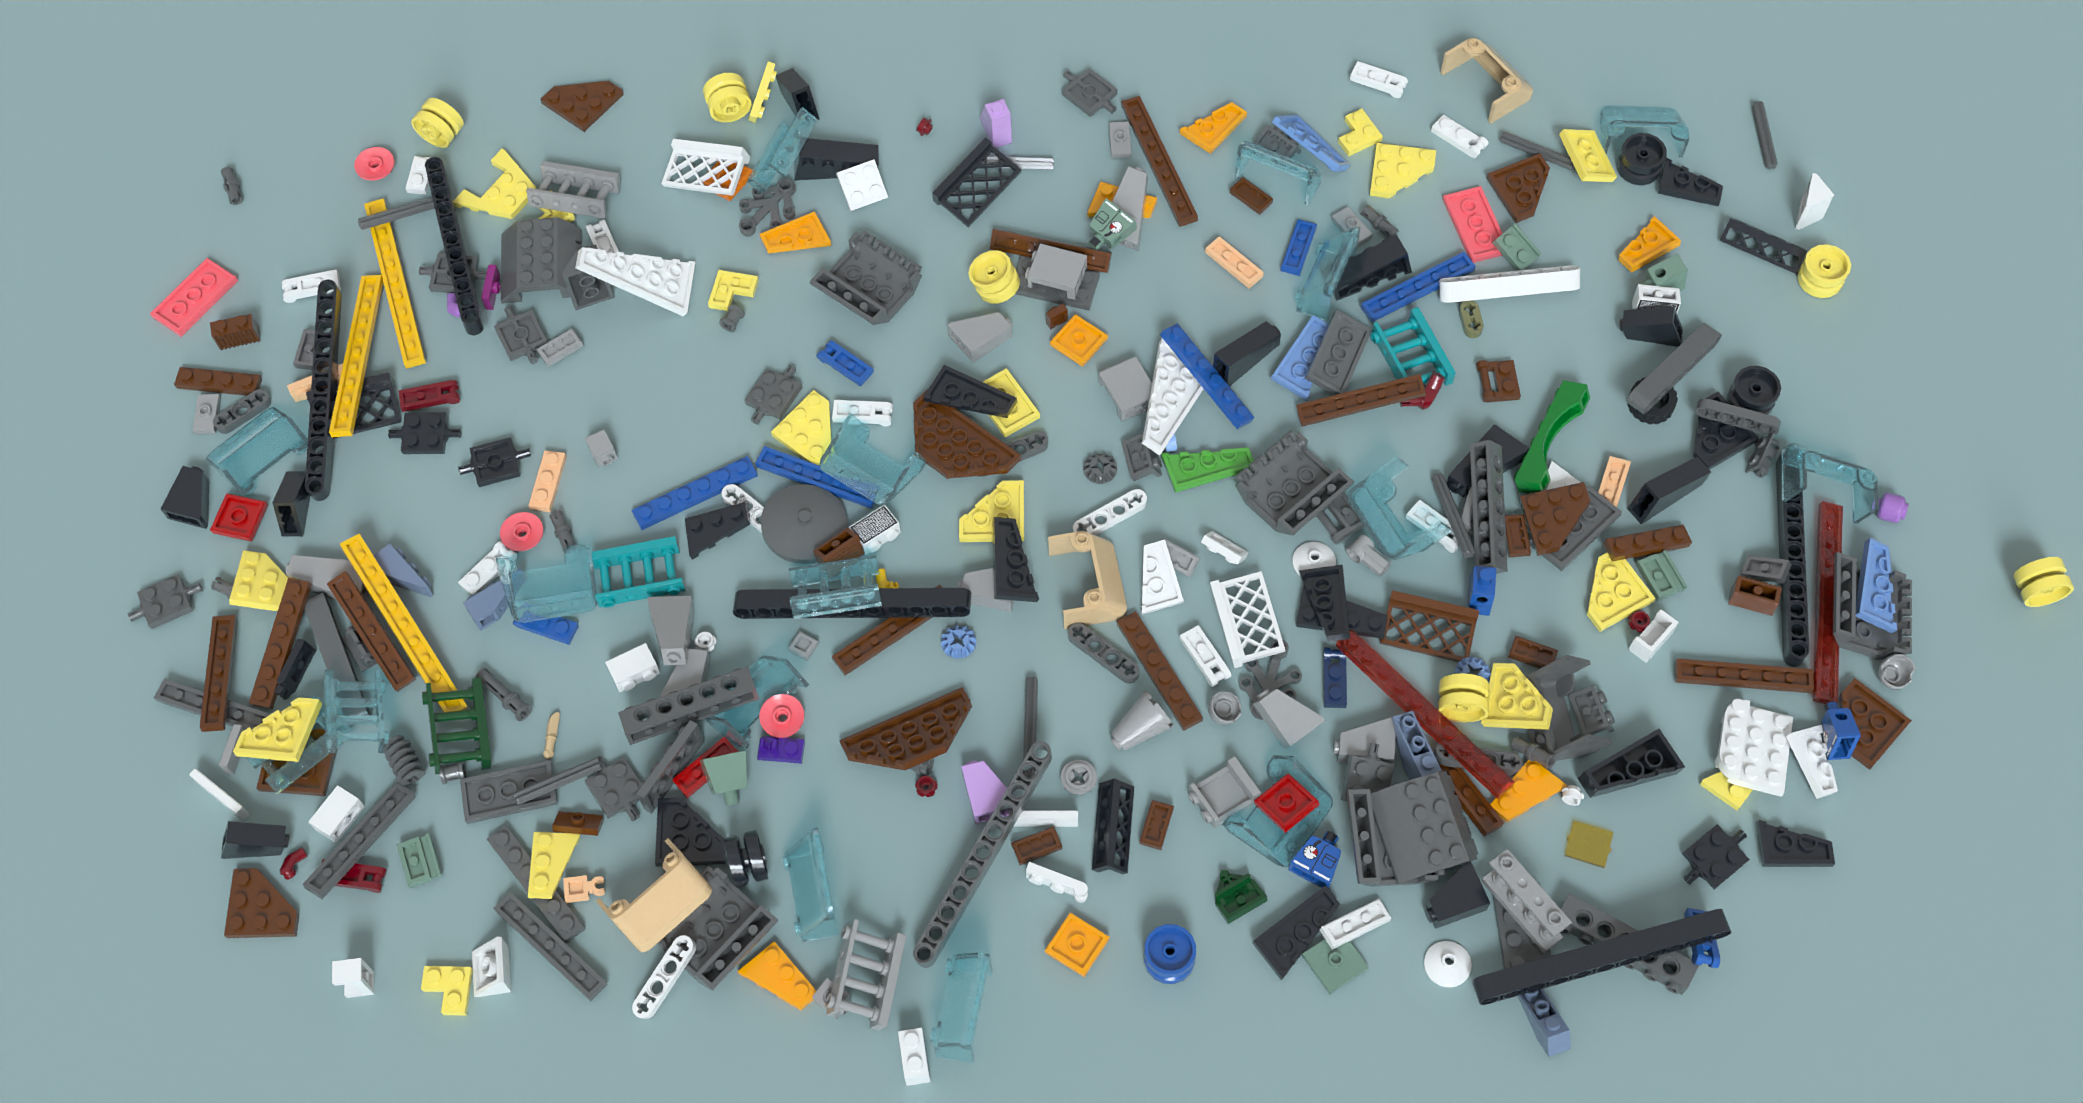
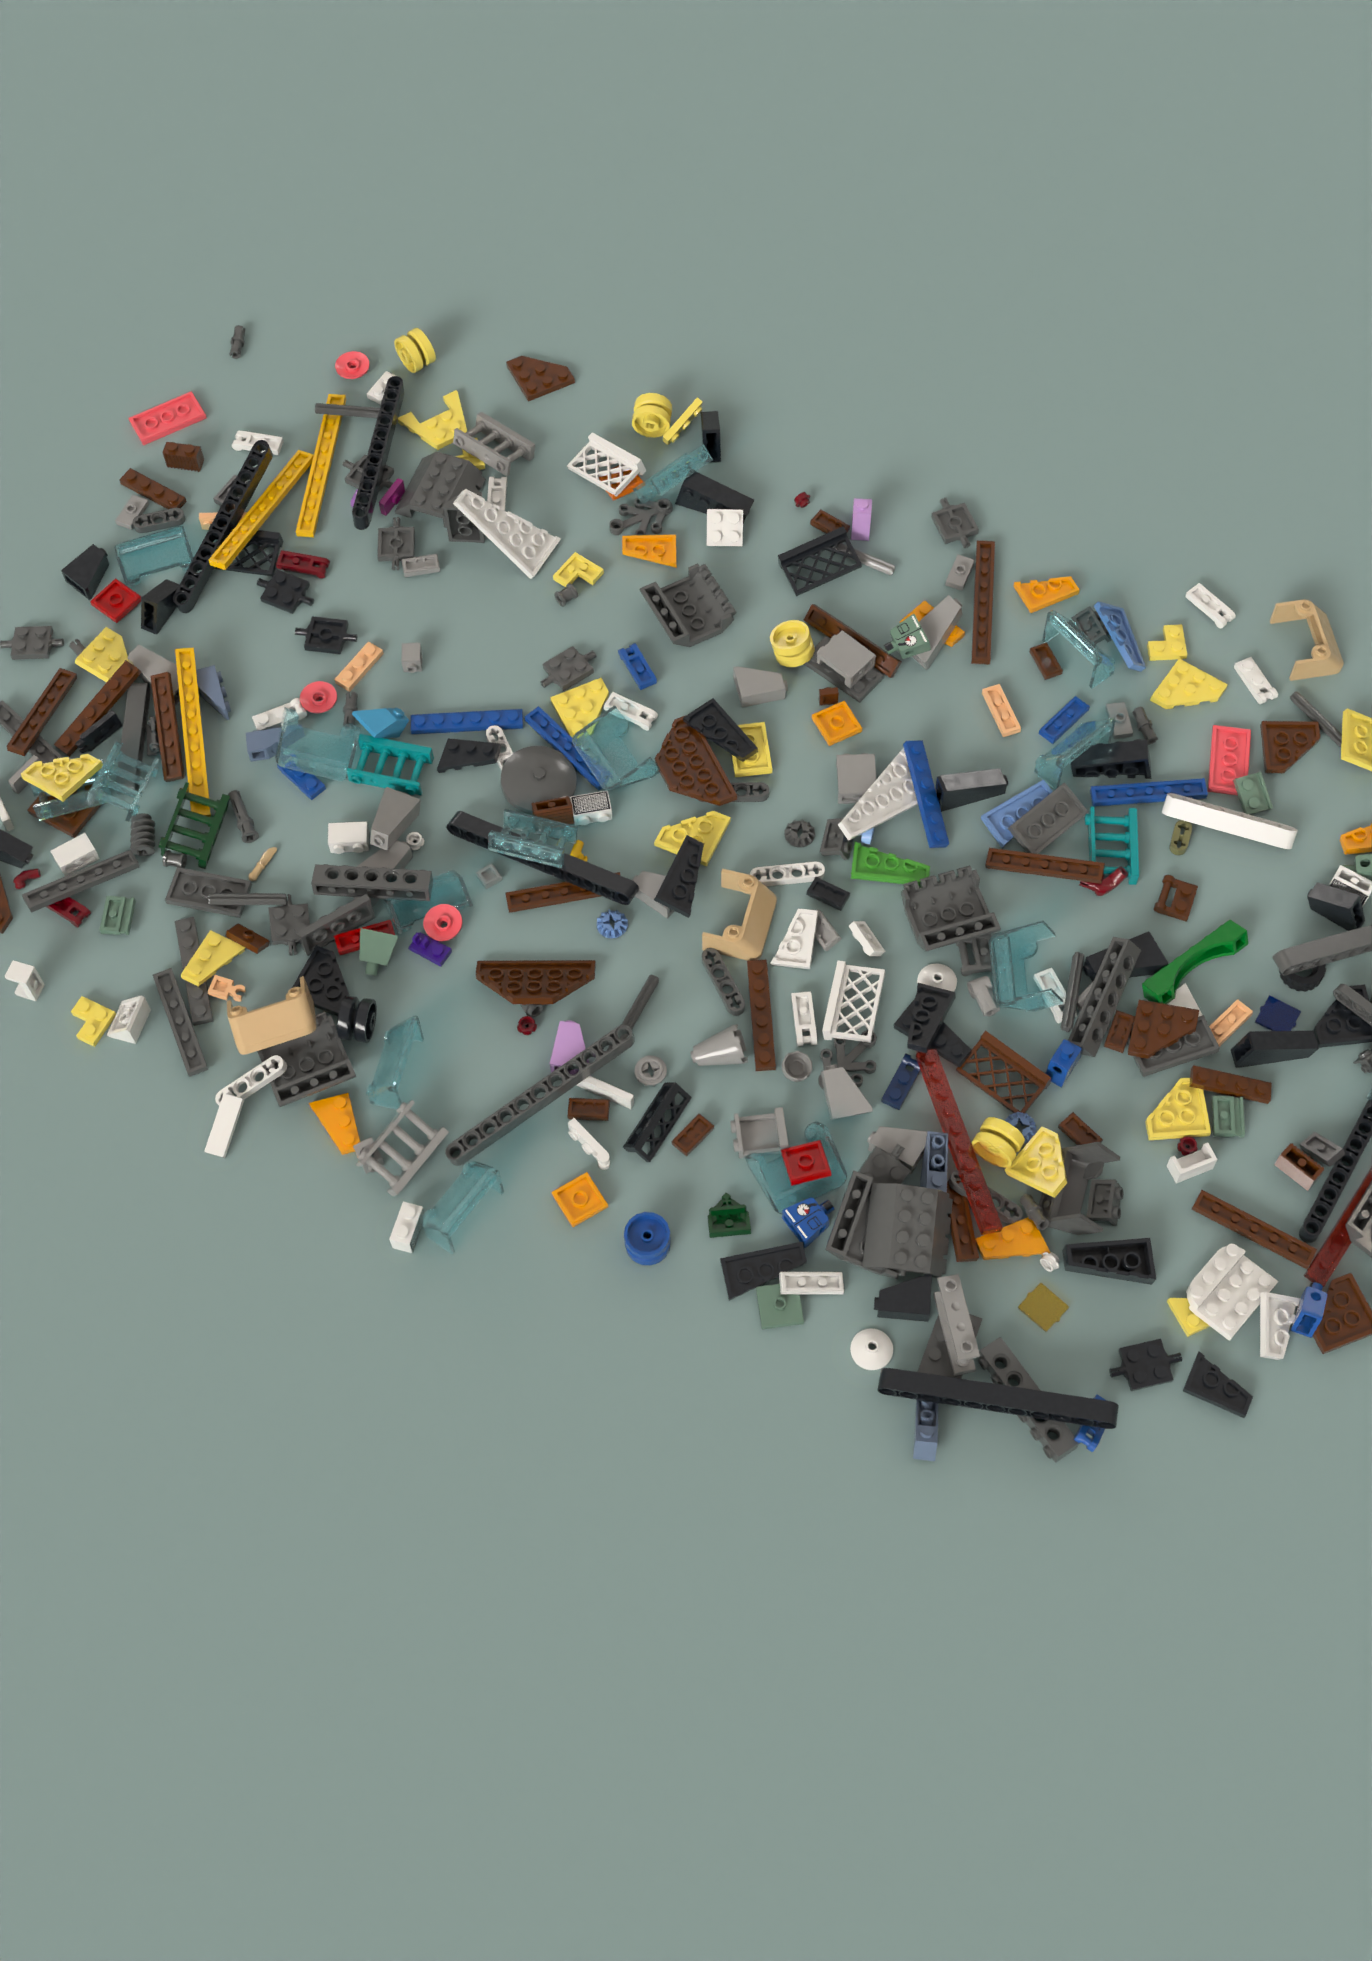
camera: 25 degrees right, 0 degrees up
(608, 529) = (382, 722): none -> dark azure slope
(659, 1037) = (224, 1125): none -> white tile
(963, 140) = (827, 522): none -> reddish brown plate
(1161, 517) = (828, 893): none -> black plate
(1653, 456) = (1277, 1015): none -> clear blue piece

